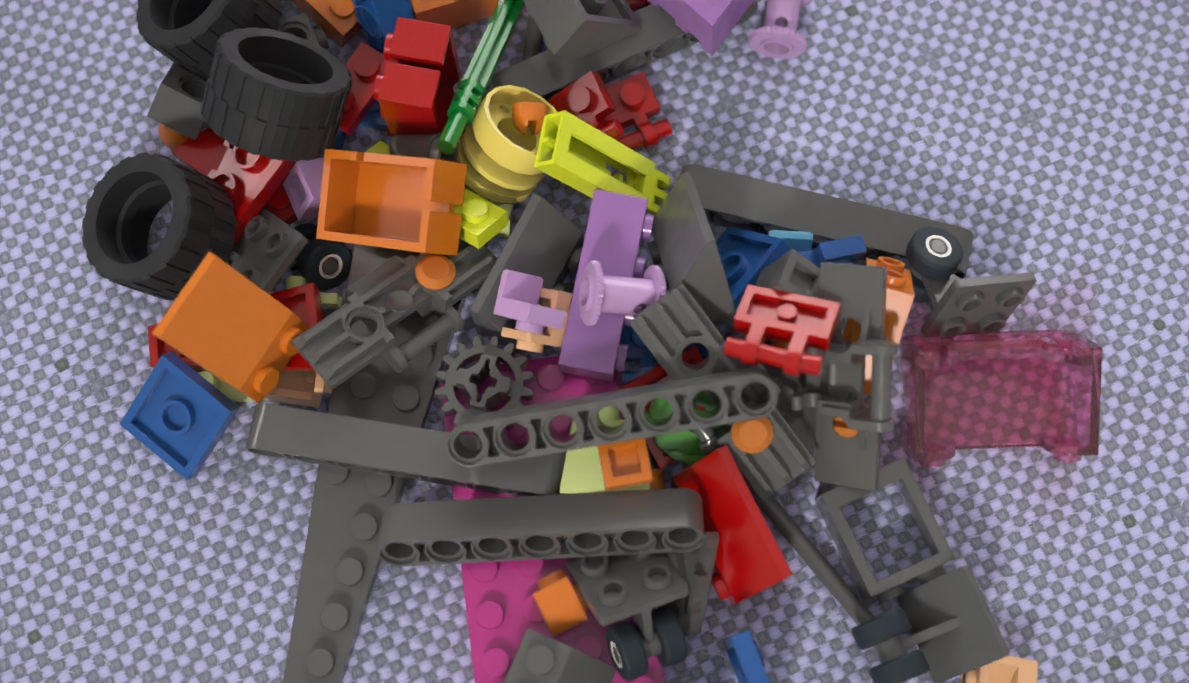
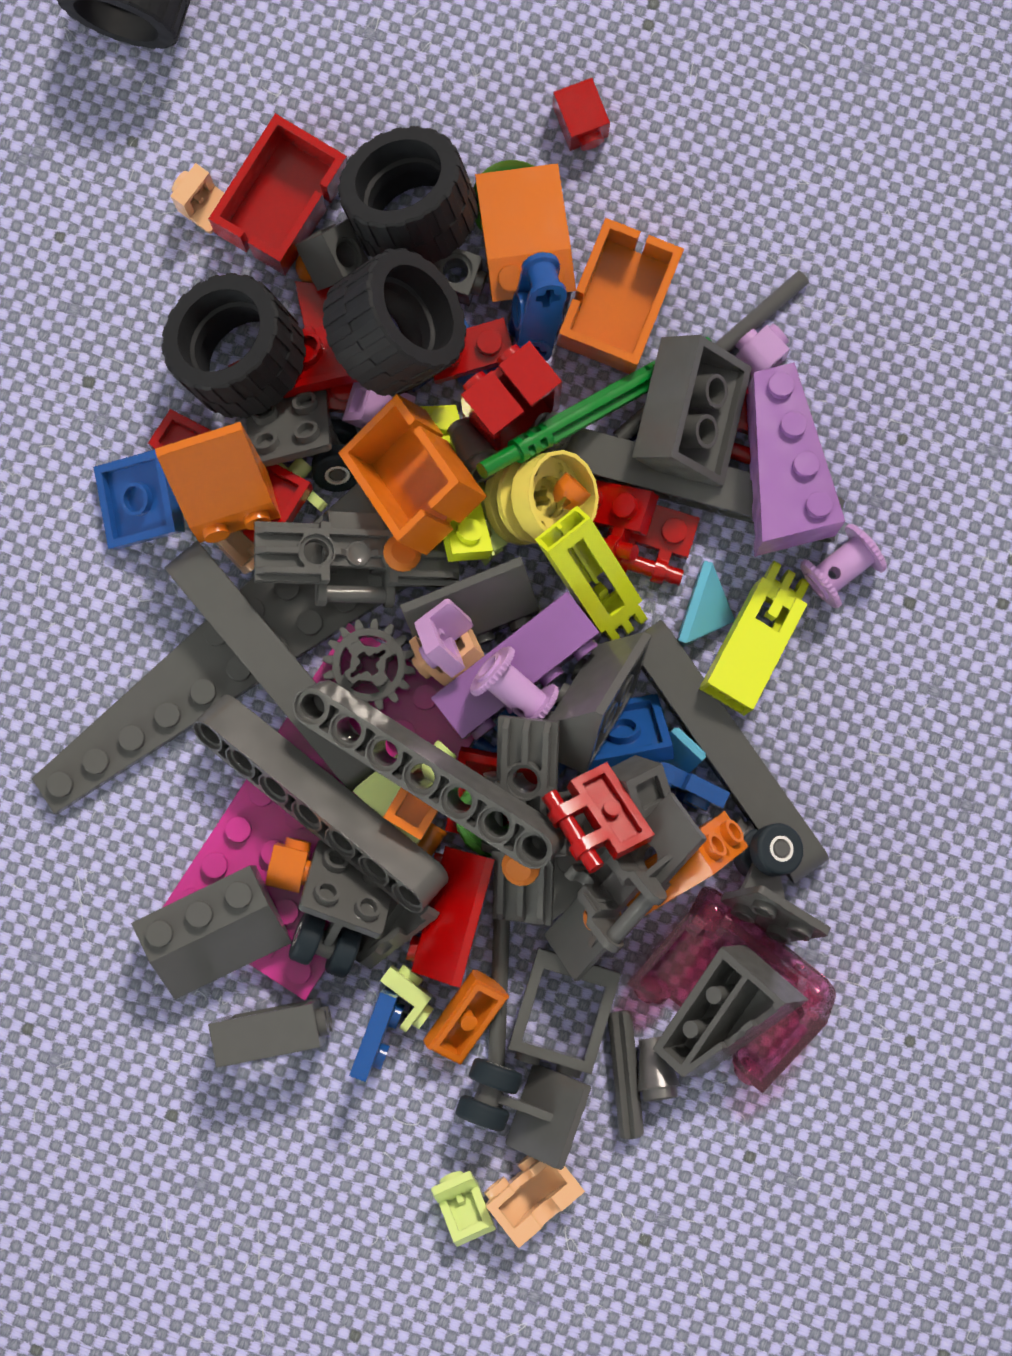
camera: 40 degrees right, 10 degrees up
(39, 150) = (196, 196): none -> light nougat bracket
(102, 92) = (279, 194): none -> red piece
(705, 129) = (706, 609): none -> medium azure slope
(740, 619) = (408, 987): none -> yellowish green bracket
(770, 126) = (753, 647): none -> neon yellow hinge
(813, 605) = (466, 1017): none -> orange brick
(979, 541) = (625, 1074): none -> dark grey axle
(998, 514) = (656, 1077): none -> flat silver cone
(1013, 411) = (726, 1011): none -> dark grey wedge

